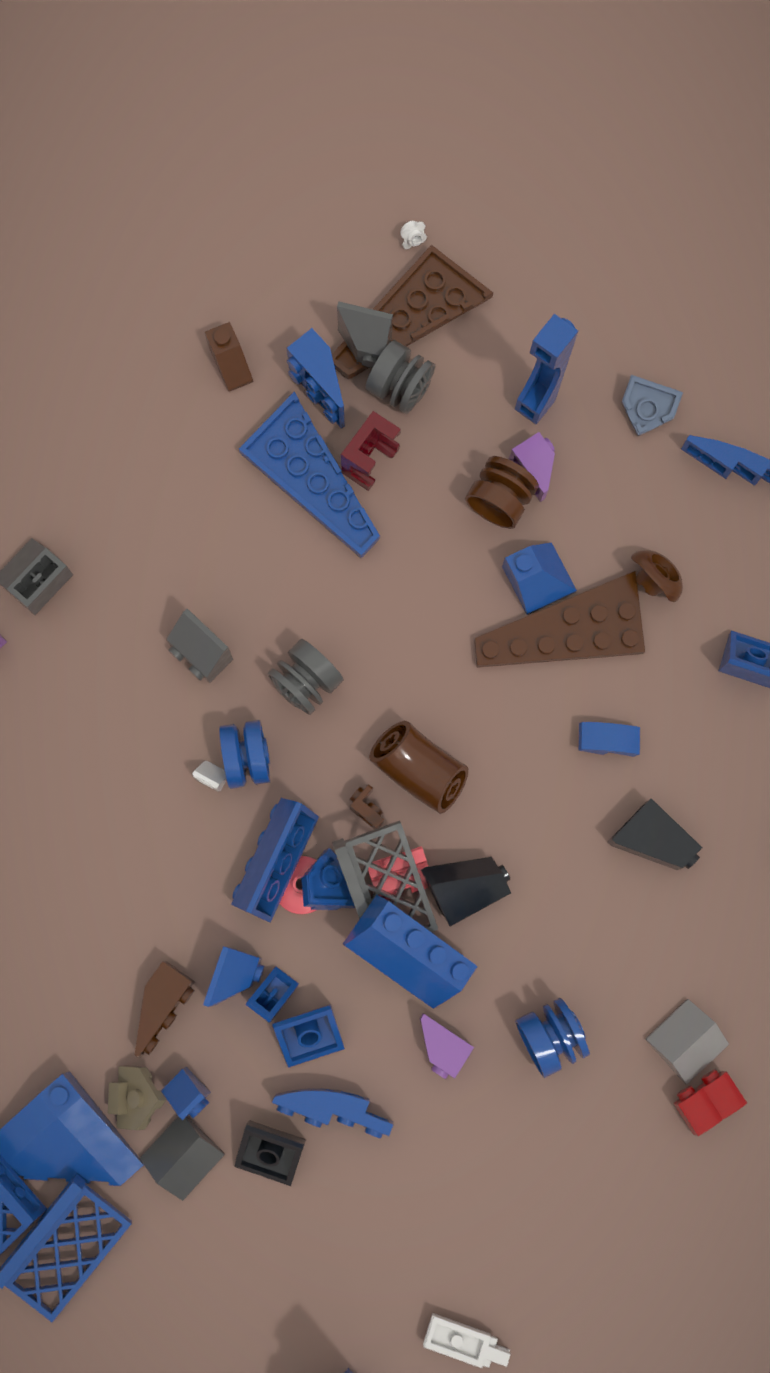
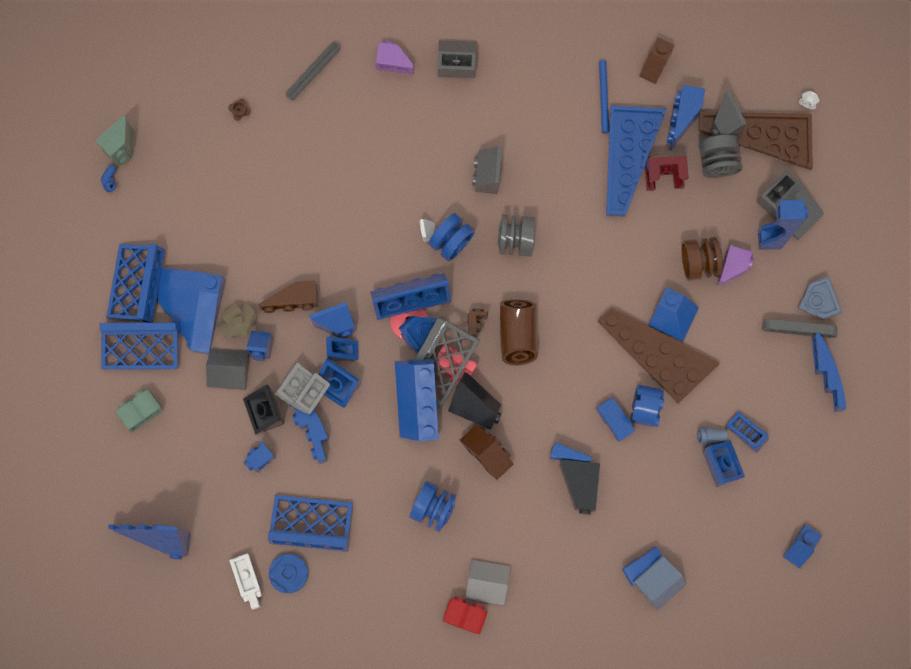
camera: 55 degrees right, 0 degrees up
(144, 1315) = (139, 410): none -> sand green brick
(220, 448) = (604, 96): none -> blue bar
(284, 1085) = (302, 389): none -> light grey slope
(324, 1206) = (258, 457): none -> blue brick
(444, 1048) = (383, 456): medium lavender slope -> none
(472, 1223) = (305, 539): none -> blue fence
(494, 1281) = (288, 573): none -> blue tile
(505, 347) = (789, 188): none -> dark grey slope
(534, 918) = (487, 451): none -> reddish brown brick
(603, 831) = (565, 453): none -> blue slope
(624, 690) = (647, 405): none -> blue brick
(658, 575) = (727, 376): reddish brown hat -> none
(663, 453) = (799, 328): none -> dark grey beam
(710, 647) = (711, 435): none -> sand blue cone
(733, 593) = (749, 441): none -> blue slope

